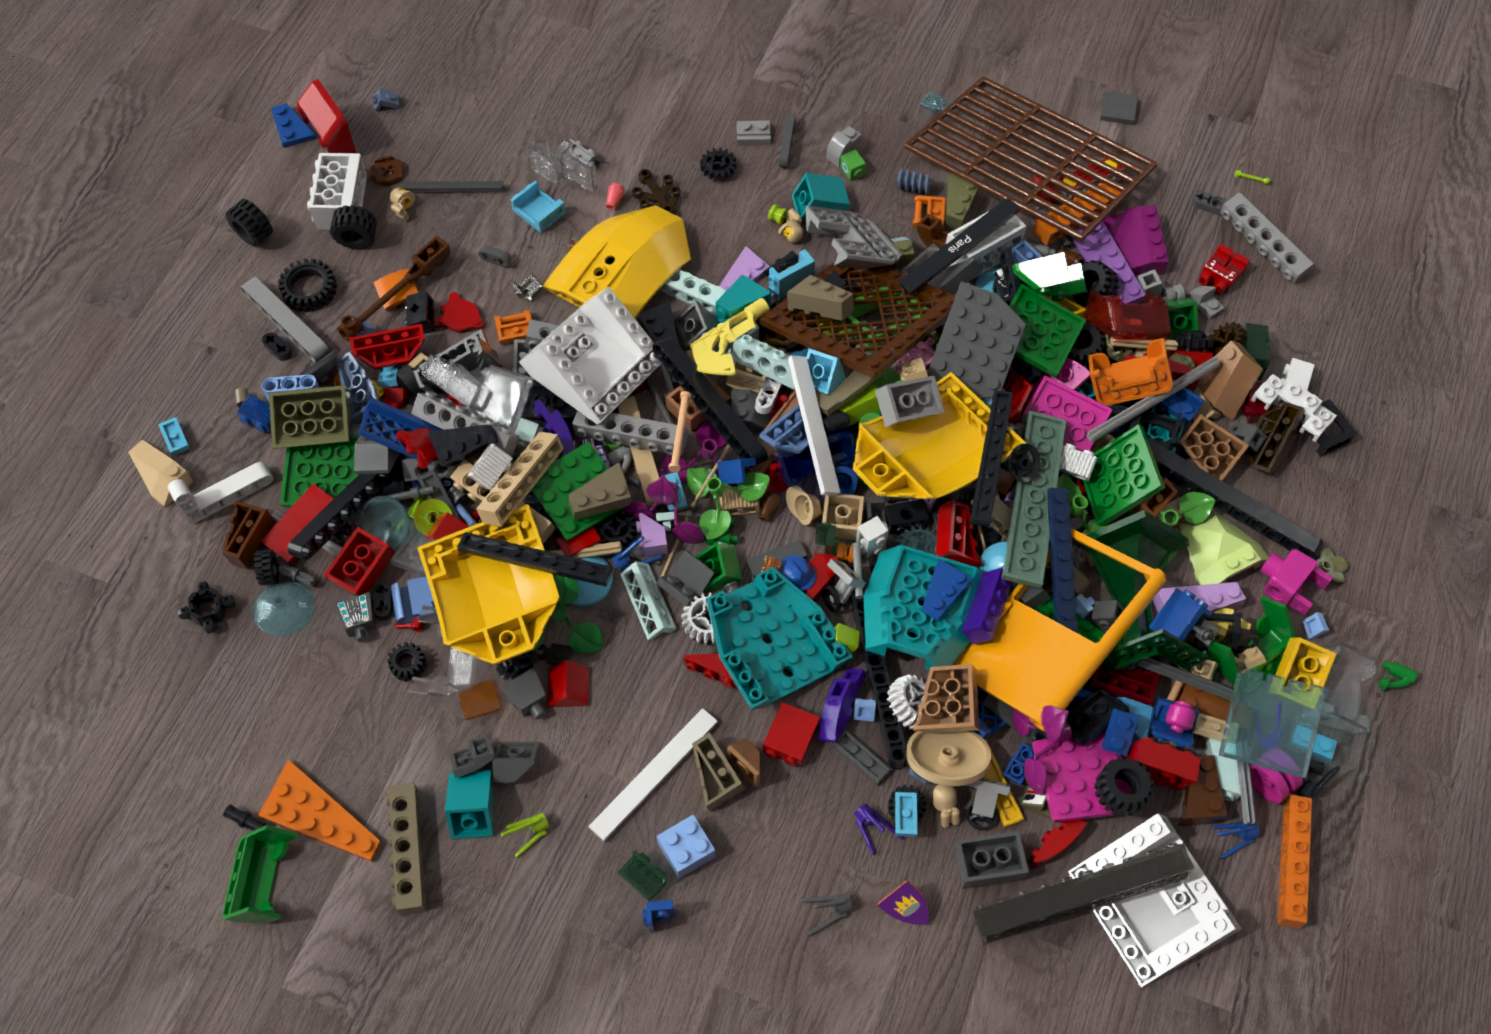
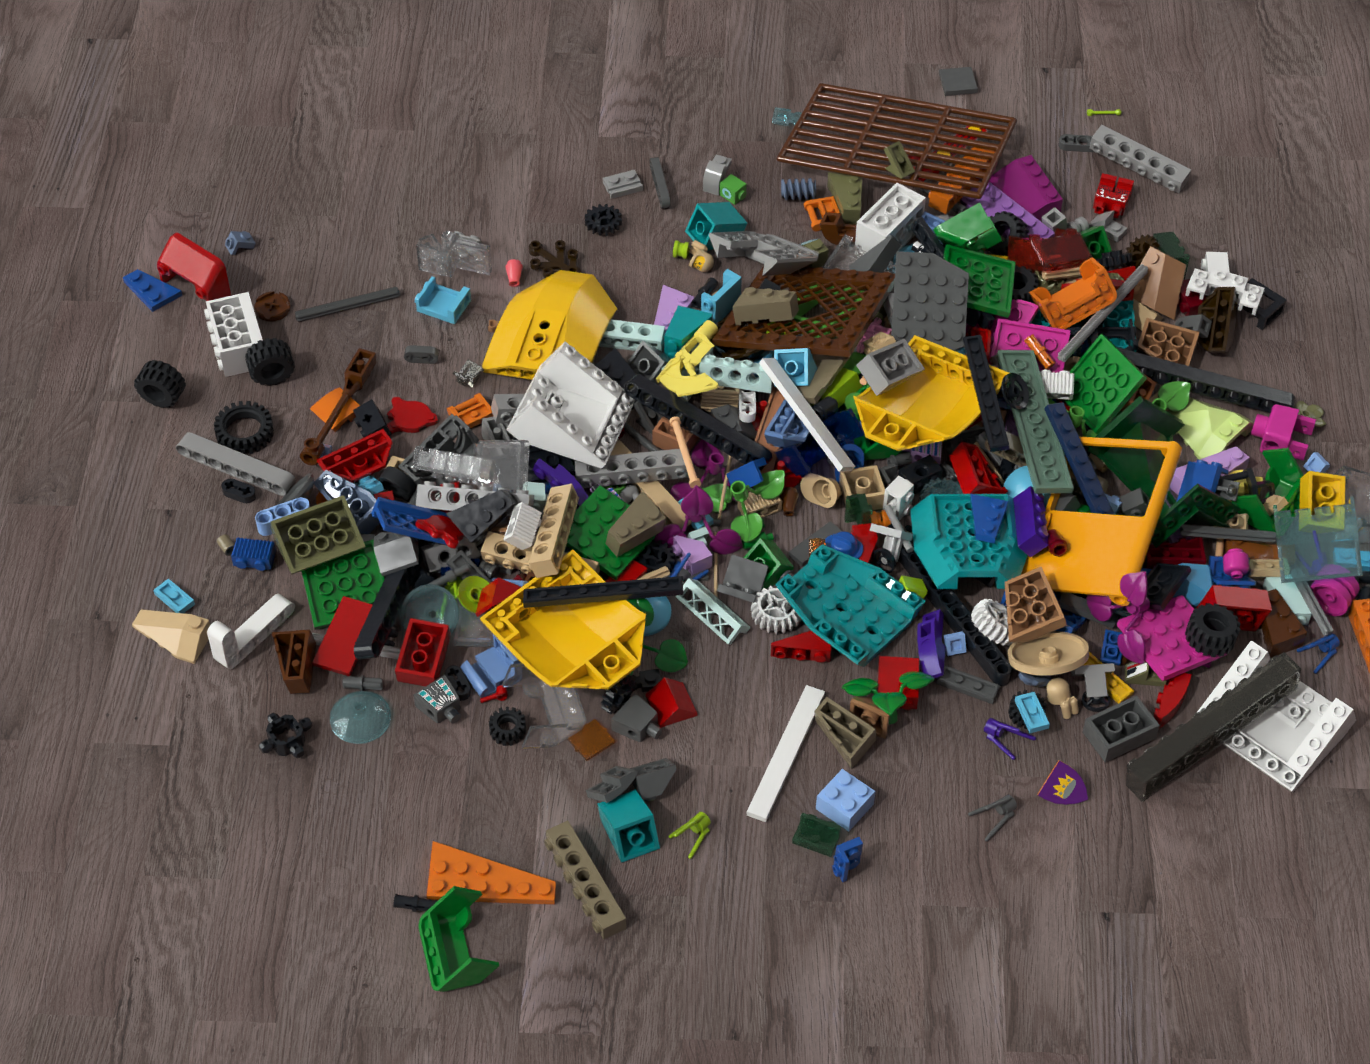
camera: 20 degrees left, 10 degrees down
(266, 567) = (331, 682): black tyre -> none
(401, 202) = (302, 328): tan piece -> none
(765, 763) = (888, 701): none -> green plant
(959, 246) = (872, 229): black tile -> none
(1001, 640) = (1057, 545): none -> dark red cone
(1016, 180) = (899, 160): none -> olive slope
(1072, 423) = (1040, 352): none -> orange pin
(1120, 732) = (1190, 588): blue bracket -> none
(1182, 402) = (1127, 310): blue bracket -> none

